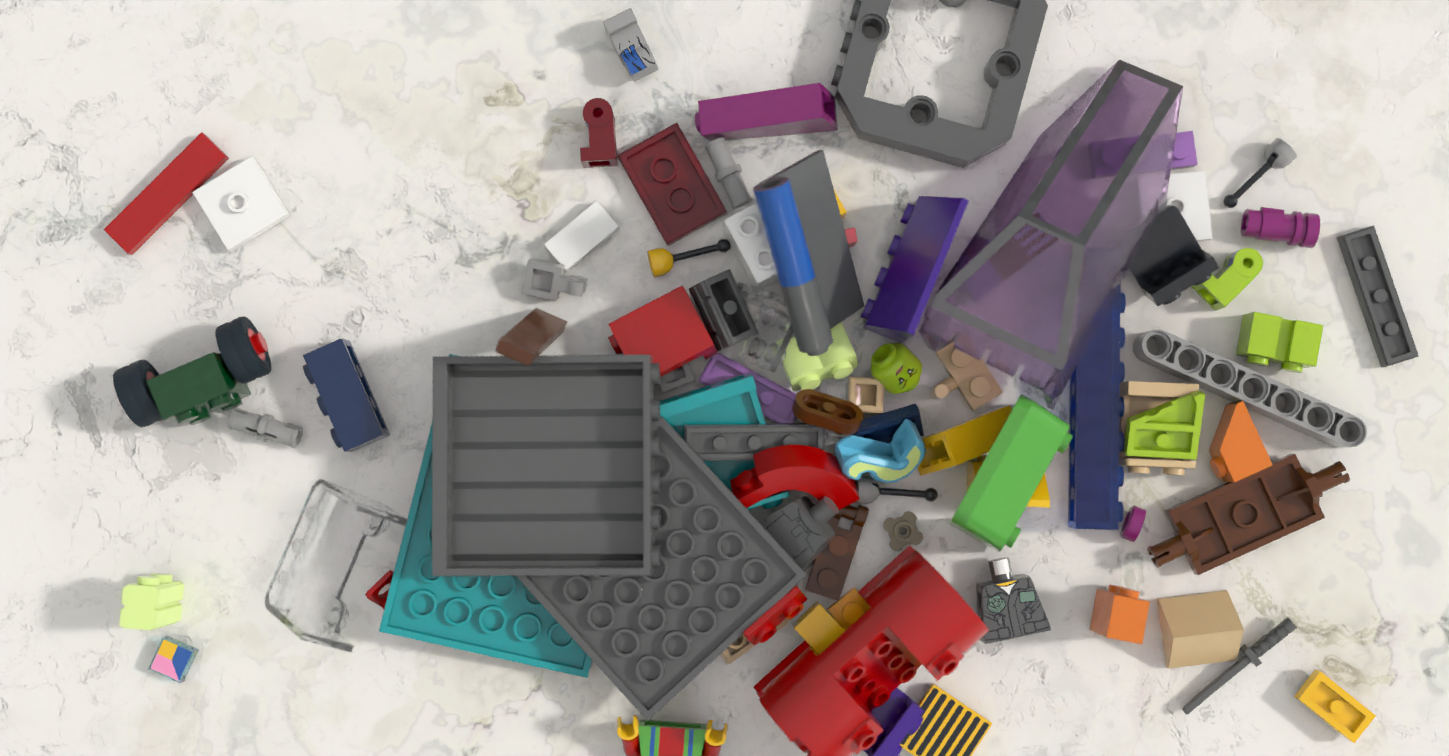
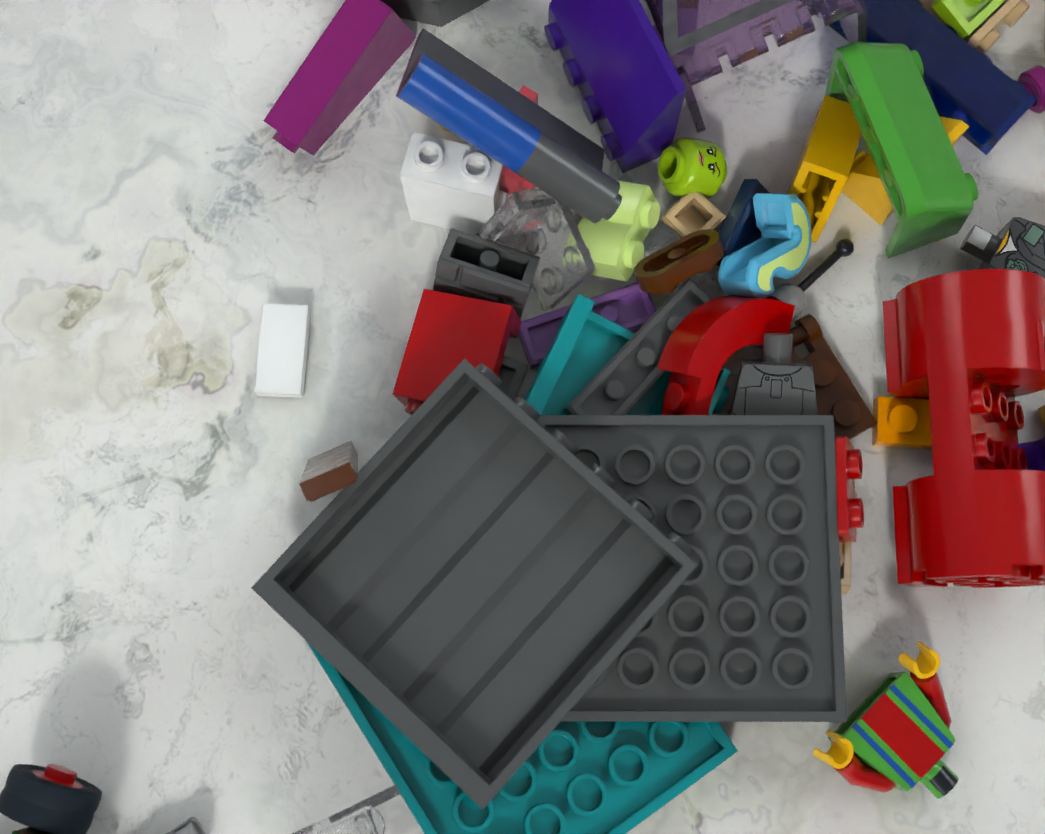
camera: 45 degrees left, 10 degrees down
(345, 395) = (204, 737): dark blue brick -> none
(547, 280) = (292, 420): light grey plate -> none
(602, 135) = (198, 236): dark red leg -> none
(630, 44) = (149, 141): light grey leg -> none
(662, 260) = (380, 294): hinge -> none
(672, 184) = (318, 223): dark red tile -> none
(728, 172) = (357, 160): light grey pin -> none
(818, 627) = (893, 462): yellow brick -> none
(912, 534) = (851, 312): dark tan plate -> none
(968, 376) = (755, 117): tan plate -> none

